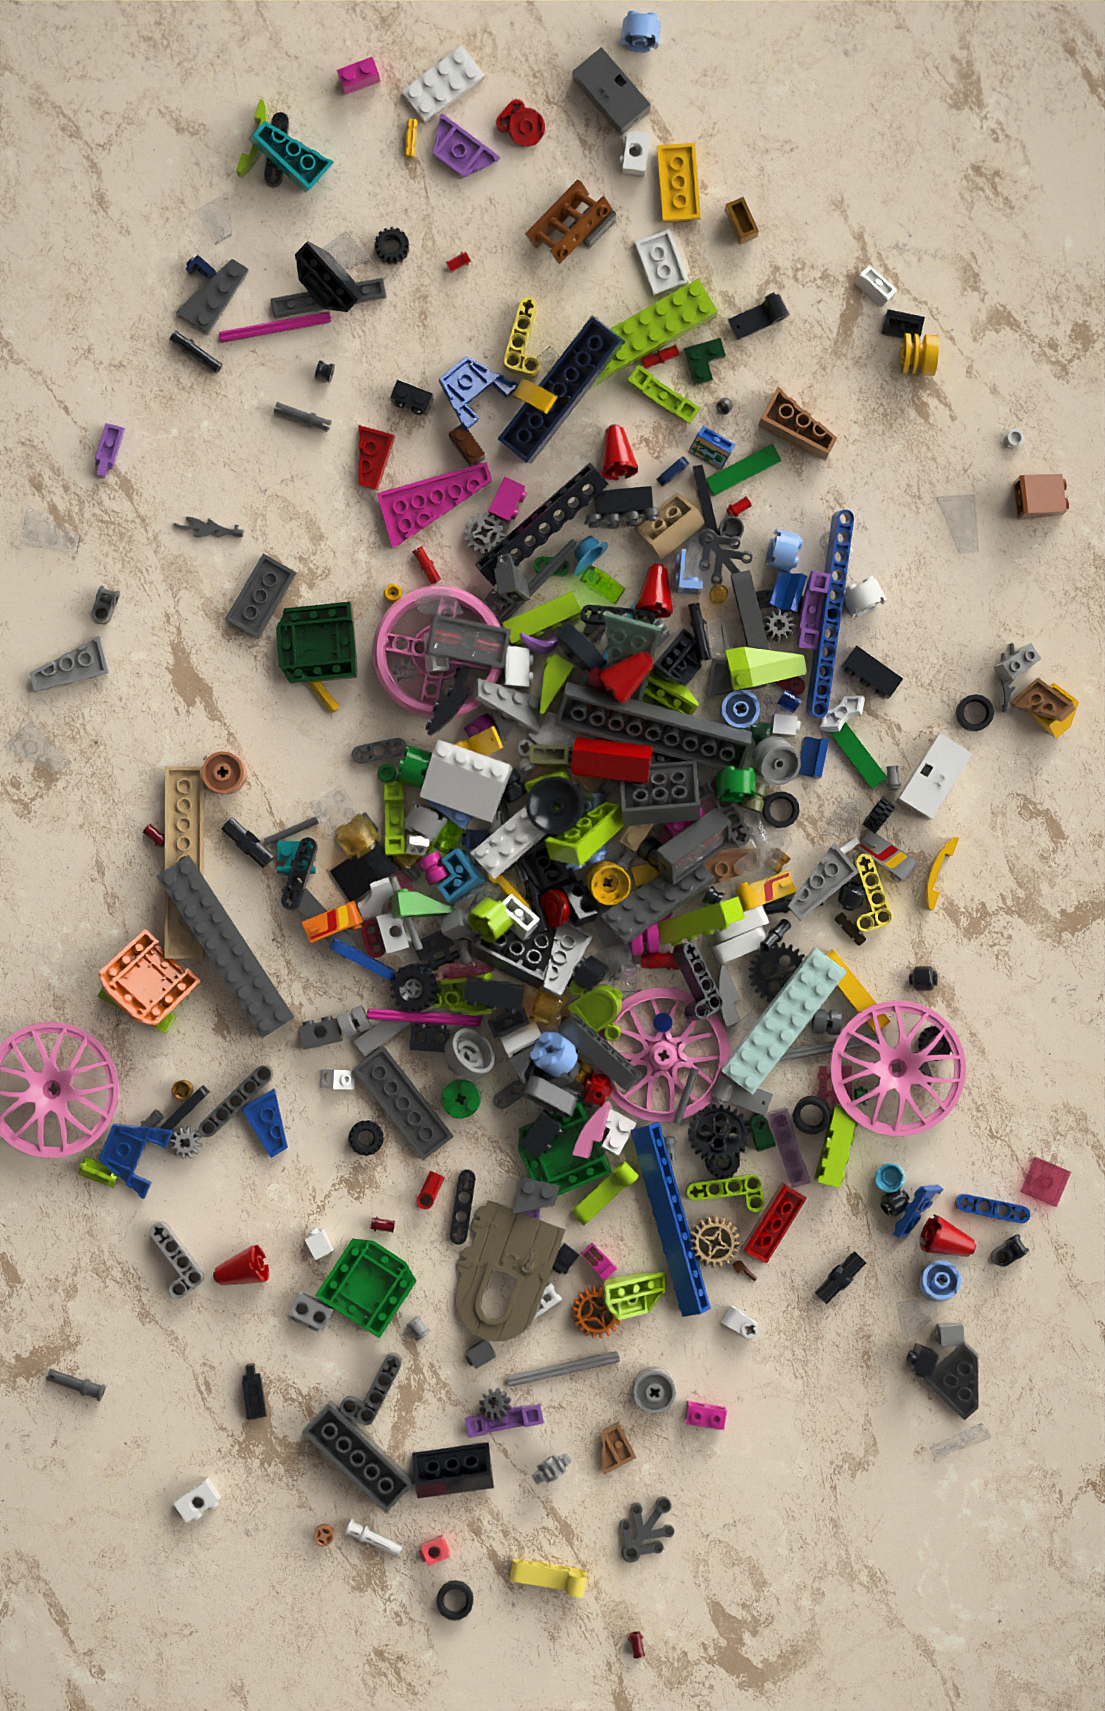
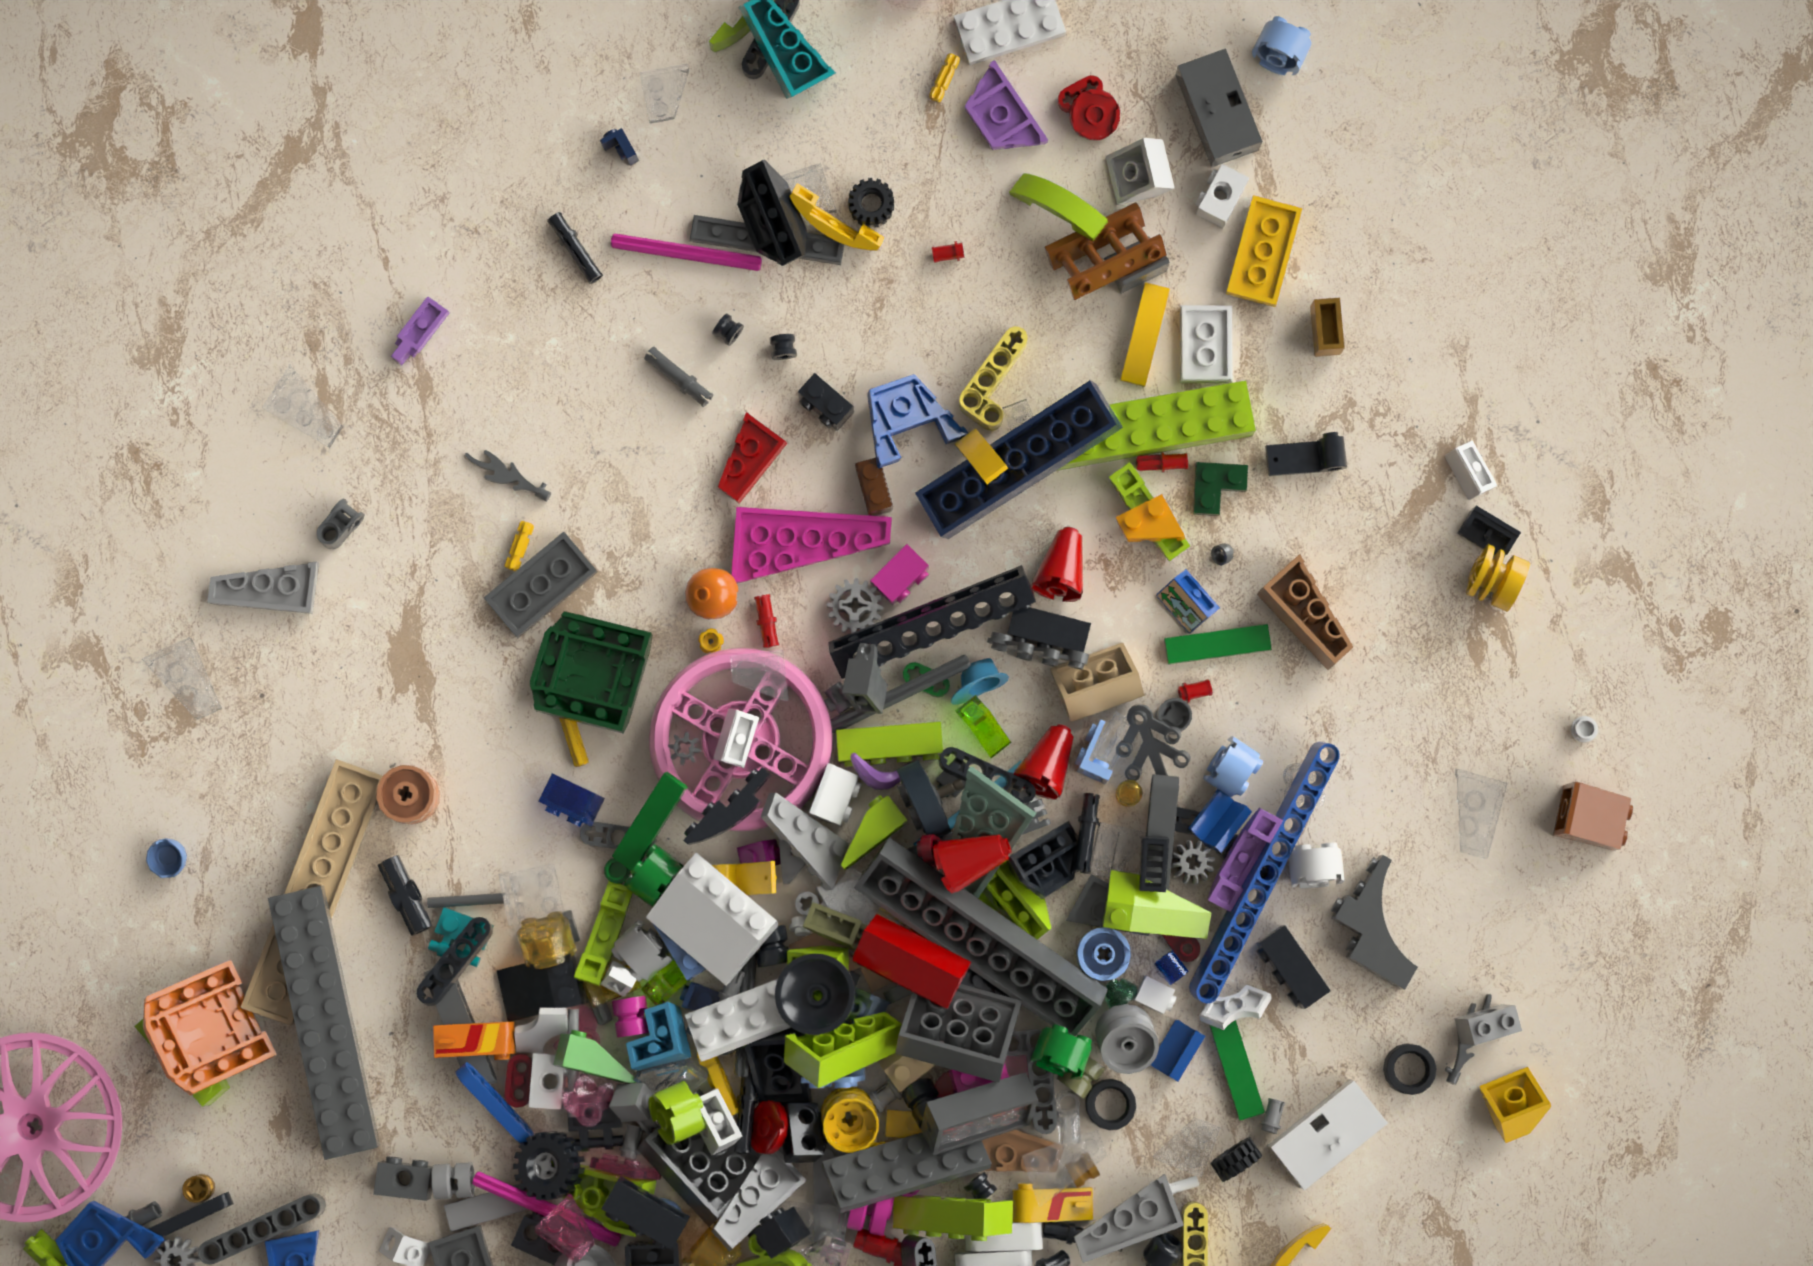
camera: 25 degrees right, 5 degrees down
(73, 876) = (166, 858): none -> medium blue hair
(157, 837) = (289, 842): dark red pin -> none
(210, 301) = (619, 190): dark grey wing -> none
(235, 575) = (519, 545): none -> yellow axle
(338, 736) = (572, 800): none -> clear blue brick
(367, 369) = (783, 346): none -> black wheel
(381, 559) = (711, 593): none -> orange cylinder
(396, 272) = (830, 226): none -> yellow slope
(398, 730) = (650, 820): none -> green tile
(425, 931) = (585, 1096): none -> clear pink plate
(444, 1024) = (566, 1230): none -> clear pink wing
(468, 641) = (779, 740): clear brick -> none
(524, 198) = (1061, 203): none -> lime slope
(572, 156) = (1140, 171): none -> white slope
(616, 271) = (1145, 334): none -> yellow slope
(667, 401) = (1150, 522): none -> light orange wing
(672, 471) = (1126, 614): dark blue beam -> none
(704, 498) = (1154, 664): black beam -> none
(757, 625) = (1163, 864): none -> black slope
(887, 855) = (1229, 1217): light grey door -> none
(908, 620) = (1364, 915): none -> dark grey arch
(1043, 701) = (1505, 1087): medium nougat wing -> none

